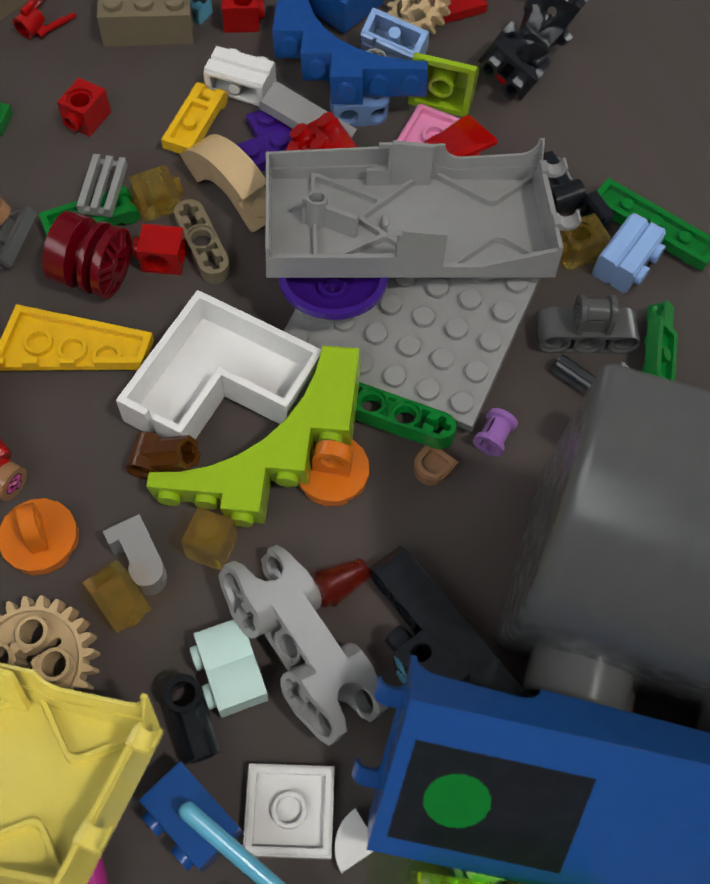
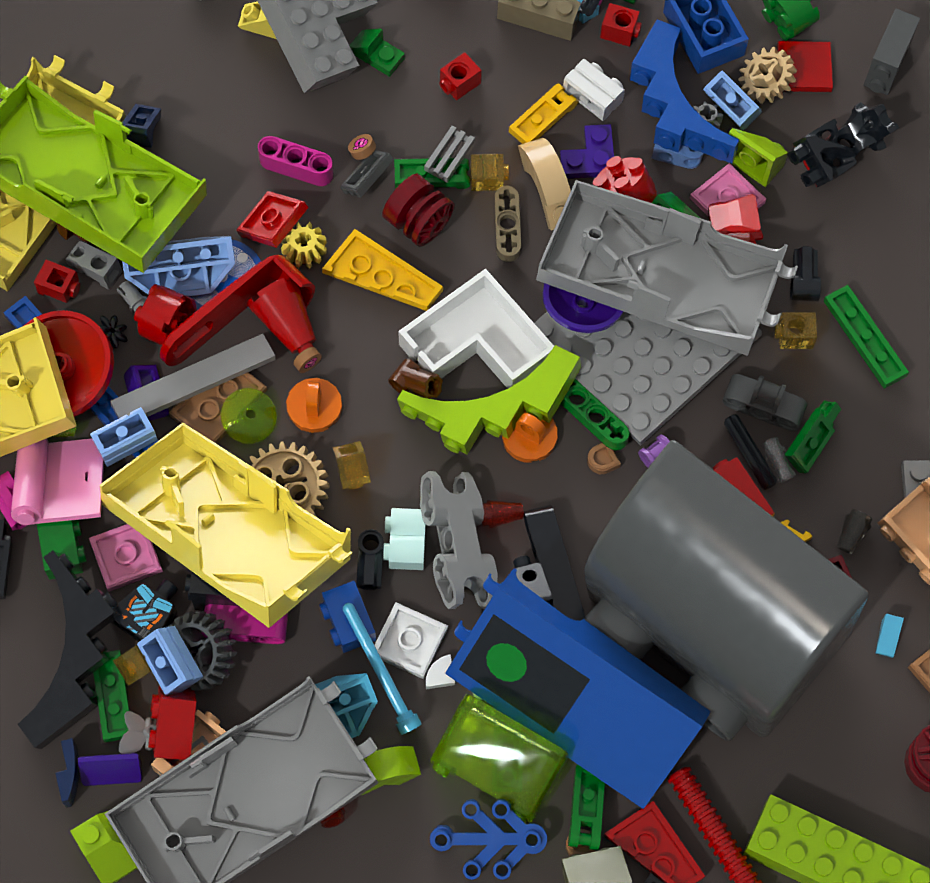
camera: 25 degrees right, 5 degrees up
(145, 563) = (377, 451): light grey leg -> none
(160, 249) = (473, 221): red brick -> none
(209, 538) = (426, 450): clear yellow brick -> none
(293, 108) = (628, 143): light grey tile -> none
(595, 204) = (822, 311): black tile -> none
(629, 252) = (831, 353): light blue brick -> none

